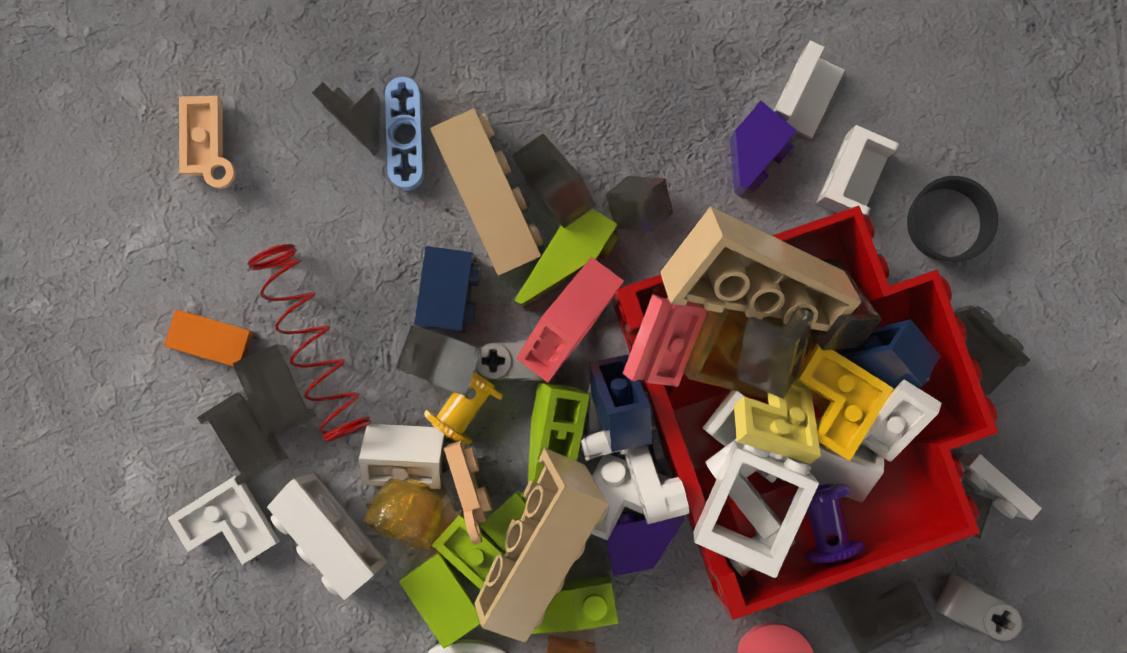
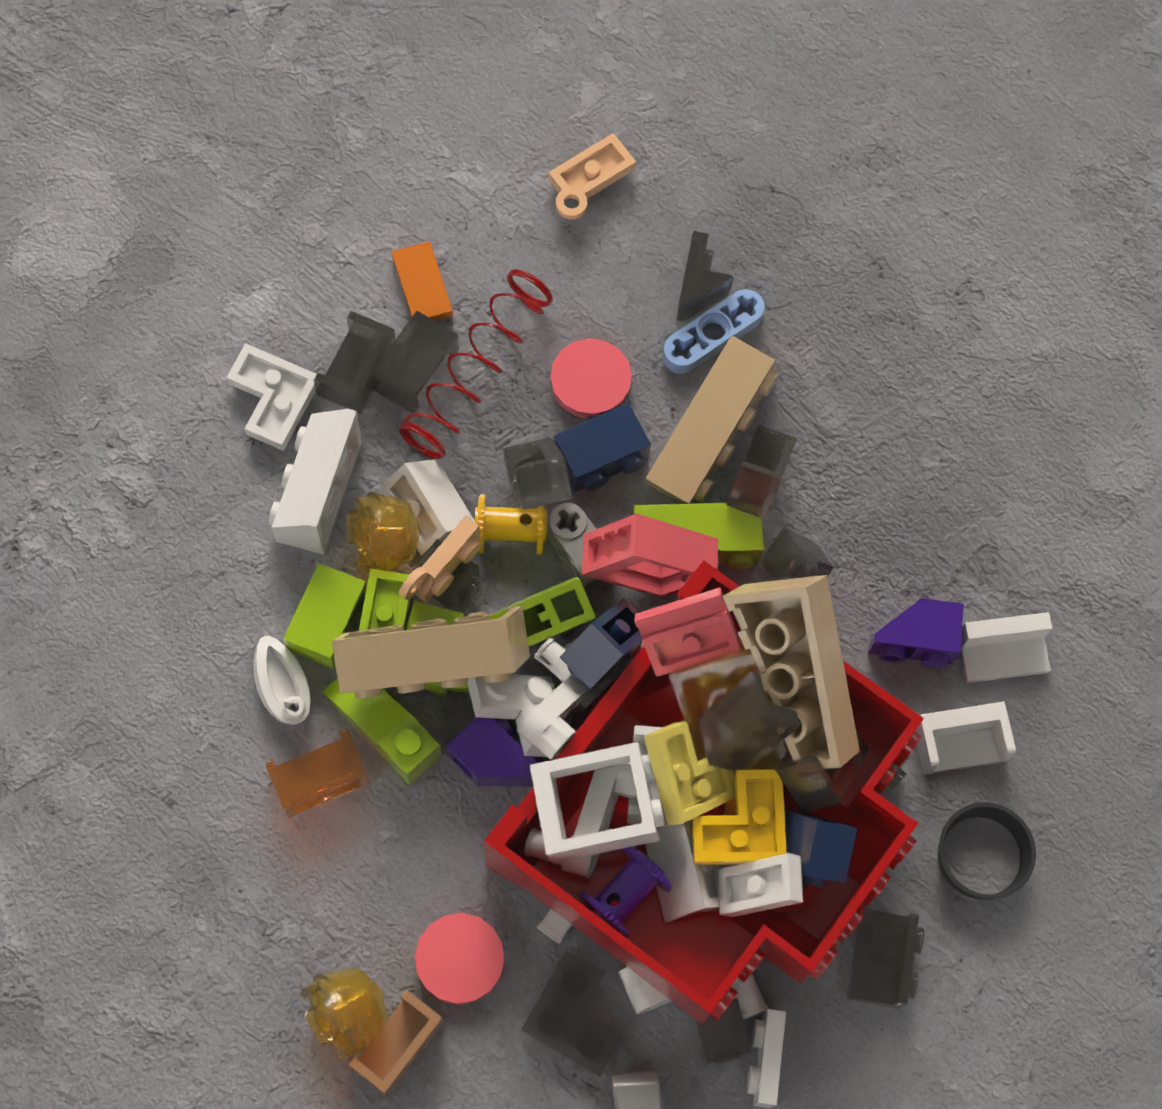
camera: 45 degrees right, 15 degrees down
(380, 257) = (590, 378): none -> coral tile

